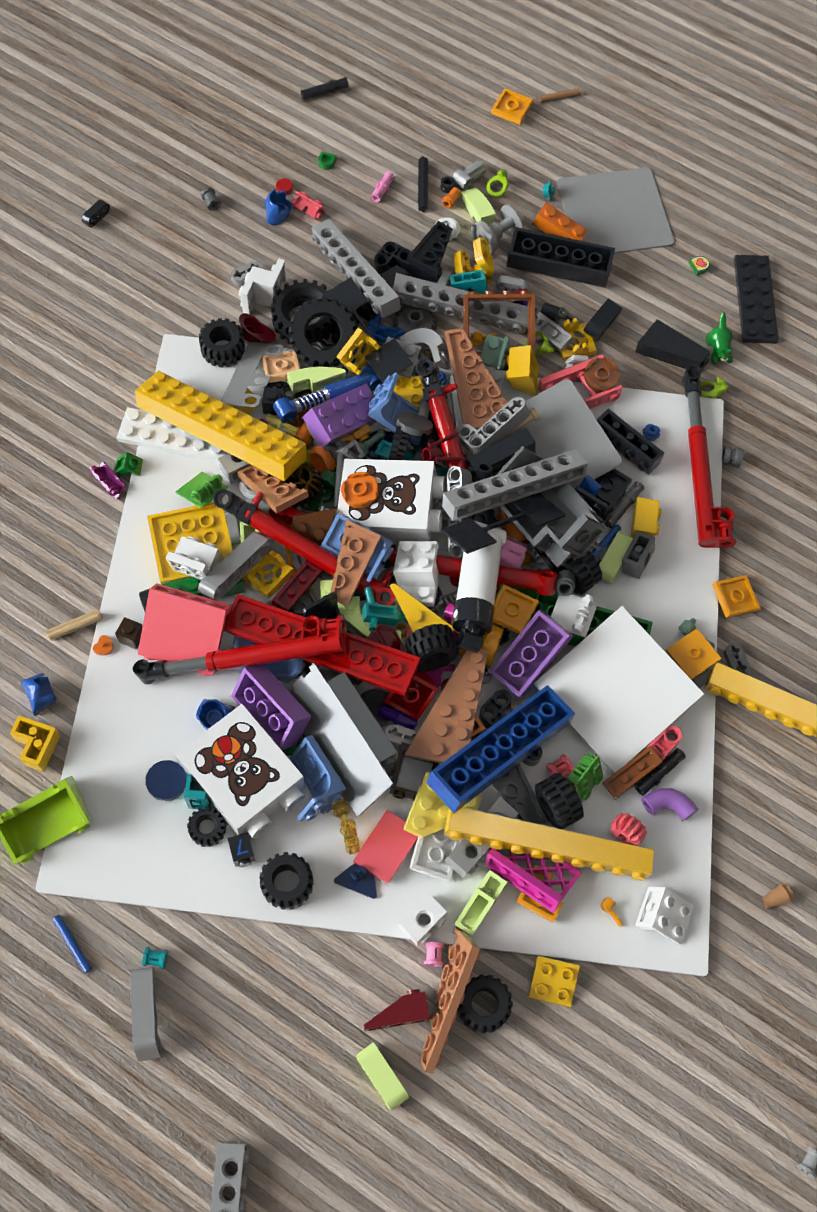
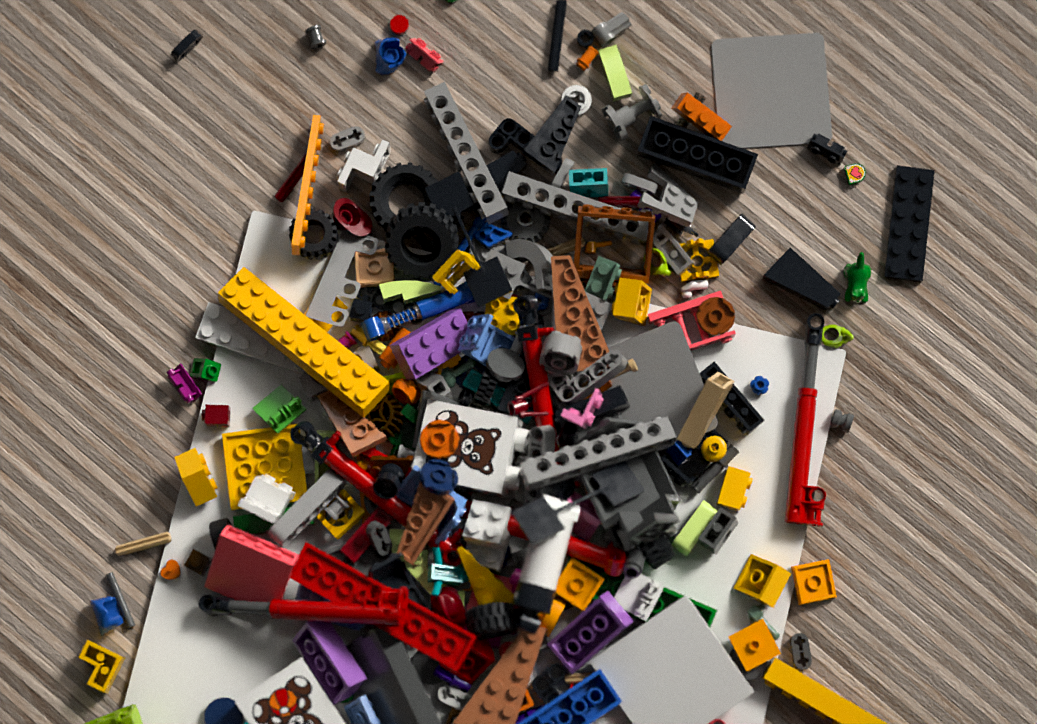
camera: 10 degrees right, 15 degrees up
(53, 681) = (120, 600): none -> dark grey bar
(123, 553) = (195, 476): none -> yellow brick
(141, 501) = (216, 415): none -> dark red brick
(200, 307) = (291, 181): none -> dark red axle
(212, 301) = (306, 191): none -> light orange plate
(212, 711) = (275, 656): blue hair -> none
(265, 566) = (336, 507): none -> light grey bush
(309, 586) = (375, 540): none -> dark grey beam
(314, 530) = (388, 481): none -> black wheel
(363, 518) = (438, 477): none -> dark blue tile
(382, 186) = (510, 35): bright pink pin -> none
(466, 405) = (560, 353): none -> light grey brick
(482, 257) = (608, 153): yellow piece -> none
(495, 453) = (587, 418): none -> bright pink bracket
(502, 177) = (648, 37): lime piece -> none
(543, 288) = (673, 201): none -> light grey wing
(548, 190) = (699, 59): teal plate -> none
(606, 540) = (691, 507): blue bar -> none
(608, 445) = (705, 409): none -> tan slope
(621, 481) = (713, 455): none -> yellow head
(670, 248) = (819, 146): none -> black hinge
(688, 596) = (762, 580): none -> yellow slope

